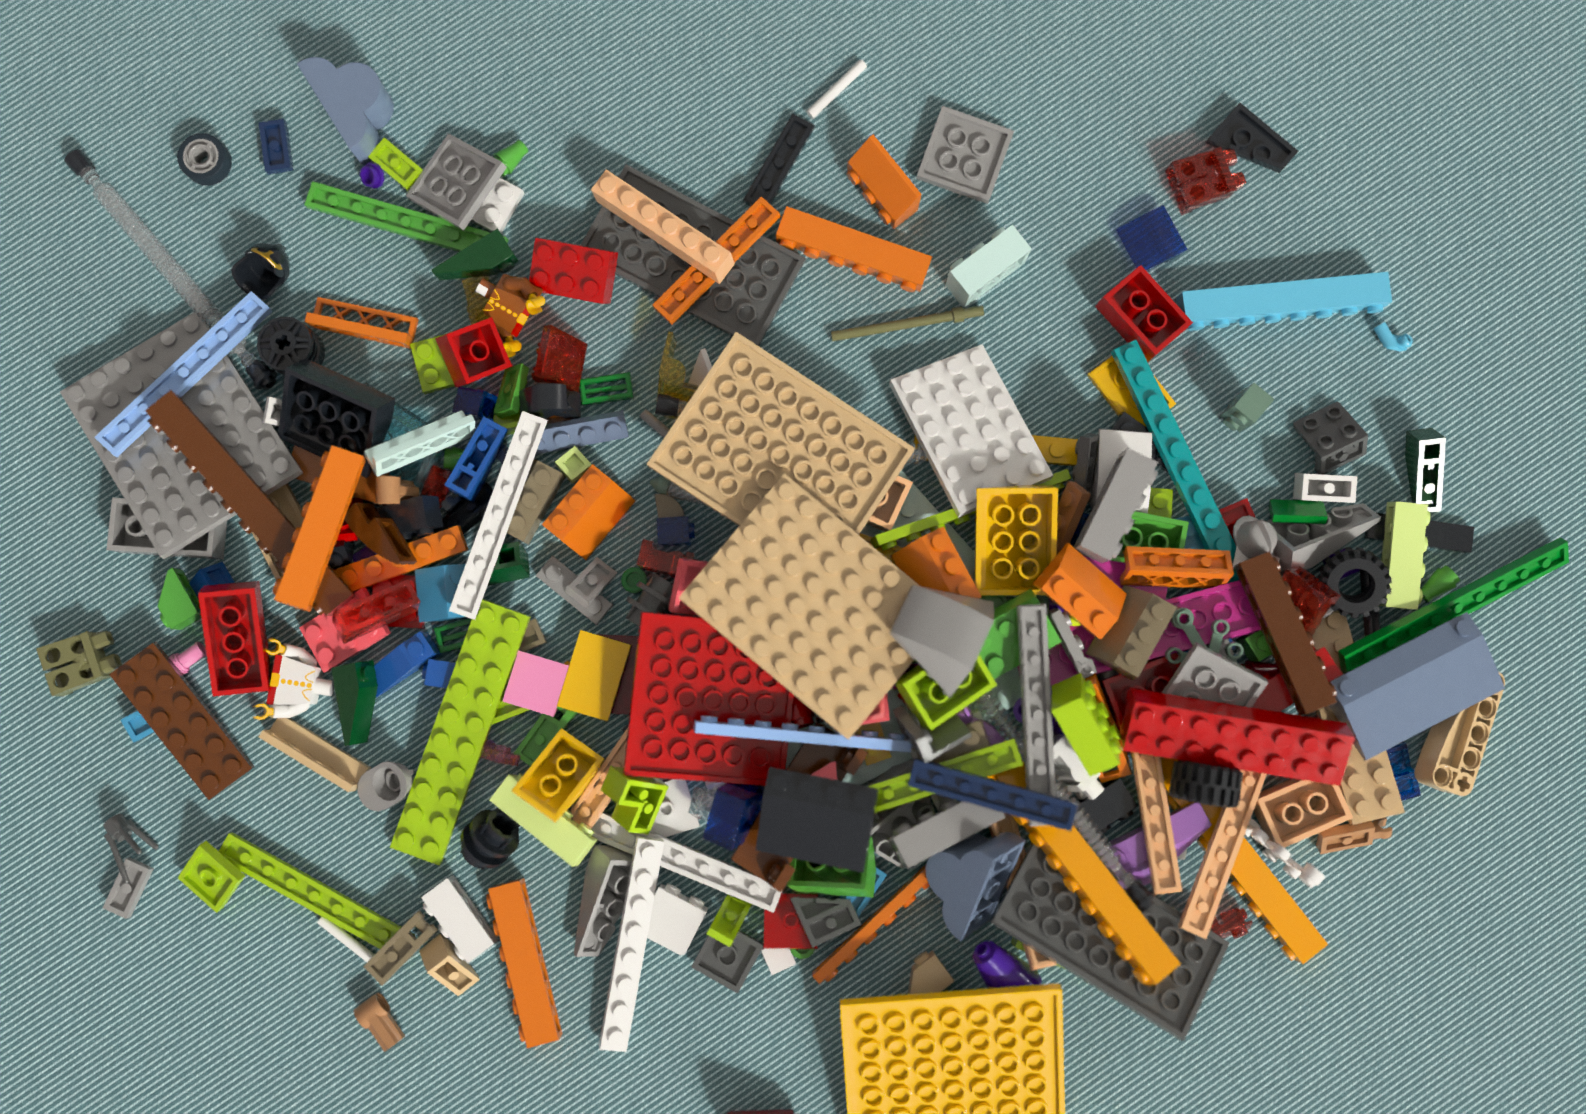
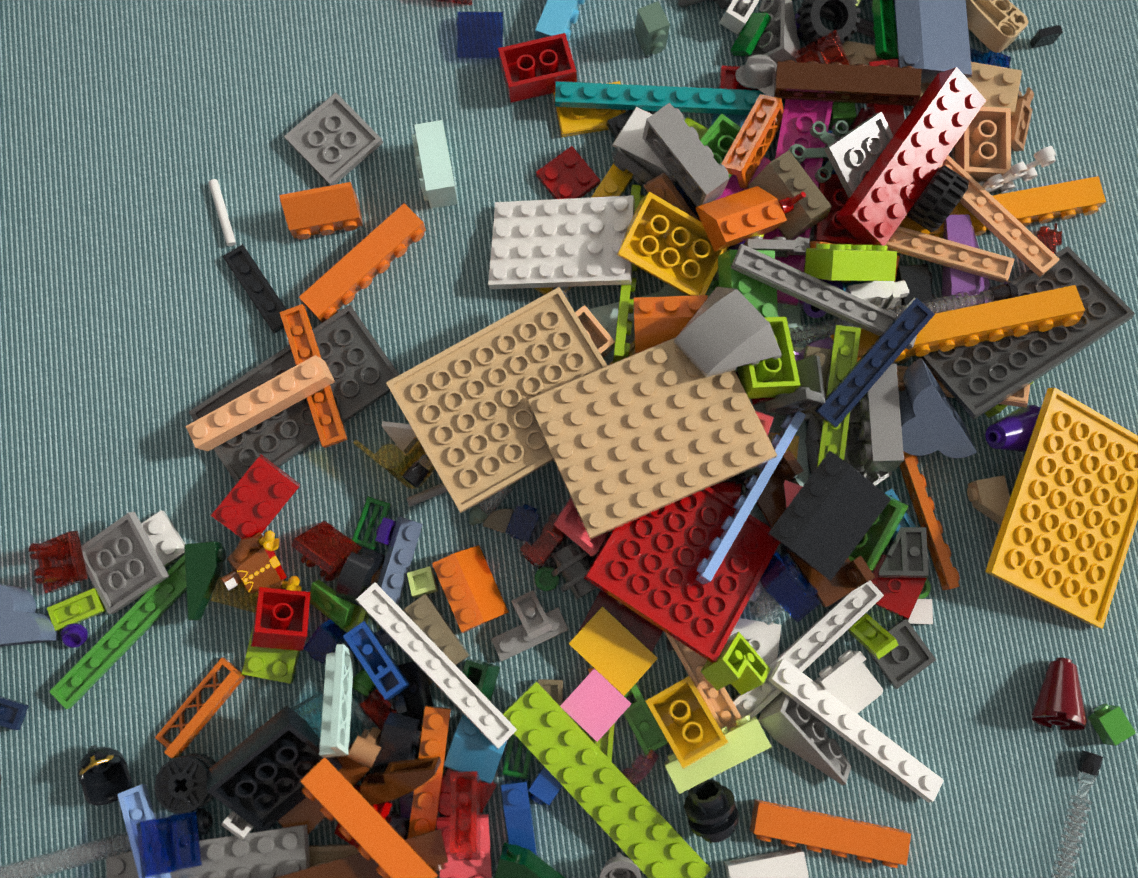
camera: 70 degrees left, 5 degrees down
(228, 360) = (168, 844): none -> clear blue slope
(430, 125) = (59, 562): none -> clear red plate
(511, 156) = (125, 503): bright green cone -> none
(603, 405) = (385, 531): none -> dark purple plate
(956, 315) = (460, 210): olive bar -> none
(1047, 402) = (568, 176): none -> red plate
(1118, 632) = (788, 203): none -> red hand
(1463, 823) = (1046, 36): none -> black tile

